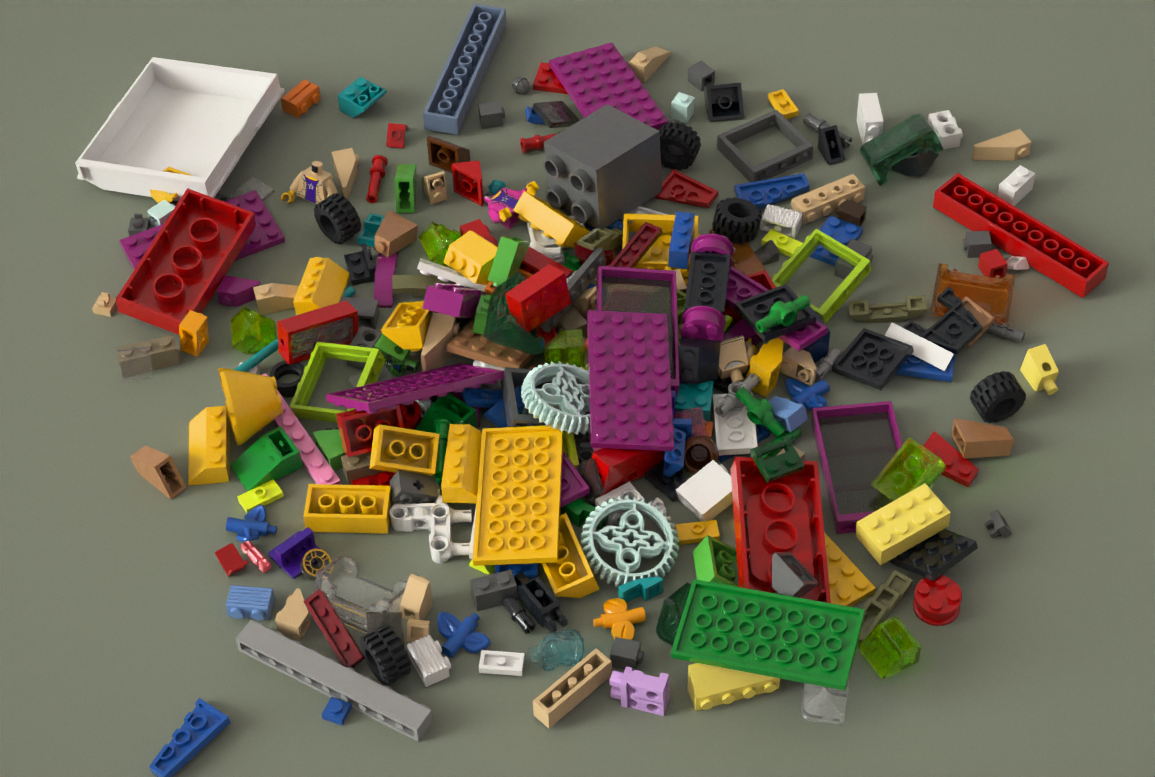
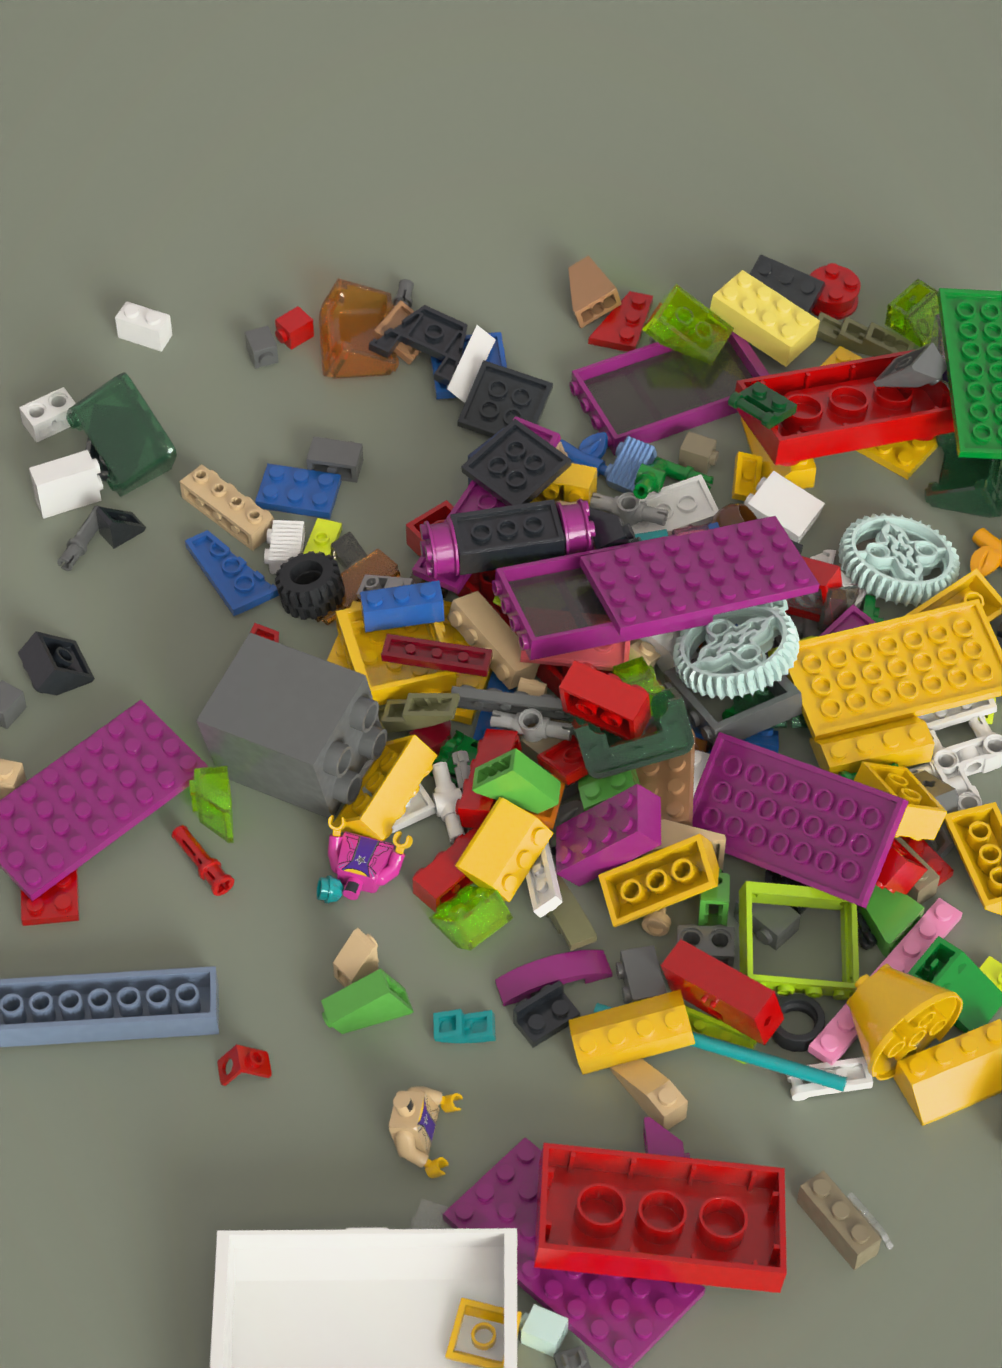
camera: 110 degrees left, 5 degrees up
(104, 305) = (757, 1339): tan tile -> none
(194, 333) = (784, 1152): light orange brick -> none
(251, 331) = (735, 1099): clear neon green slope -> none
(300, 98) = (197, 1229): orange brick -> none
(337, 218) = (483, 1056): black tyre -> none
(345, 167) = (355, 1102): tan slope -> none
(359, 97) = (185, 1135): teal slope -> none
(376, 172) = (342, 1060): red pin -> none
(394, 234) = (477, 983): medium nougat slope -> none
(444, 154) = (280, 968): reddish brown slope -> none
(468, 181) = (338, 910): red slope -> none
(491, 114) = (167, 946): dark grey brick -> none
(521, 85) = (84, 929): dark grey plate -> none
(532, 116) = (151, 888): blue plate -> none
(555, 114) = (143, 860): clear smoke tile -> none
(643, 587) = (962, 549): teal slope -> none
(678, 145) = (188, 679): black tyre -> none
(682, 107) = (85, 707): light aqua brick -> none
(696, 531) = (836, 515): yellow plate -> none
(716, 562) = (895, 472): bright green slope -> none
(774, 166) = (136, 548): dark grey window -> none
(783, 104) = (41, 597): yellow plate -> none
(783, 313) = (533, 442): green pin -> none
(845, 289) = (403, 447): lime window -> none
(852, 212) = (248, 475): dark brown brick -> none
(888, 312) = (407, 410): olive slope -> none
(998, 397) = (530, 276): black tyre -> none
(999, 524) = (702, 260): dark grey tile -> none
(1003, 148) = (63, 345): tan slope -> none
(1017, 263) = (277, 309): white slope -> none
(1021, 235) = (234, 307): red brick -> none
(1040, 369) = (461, 256): light yellow torso -> none

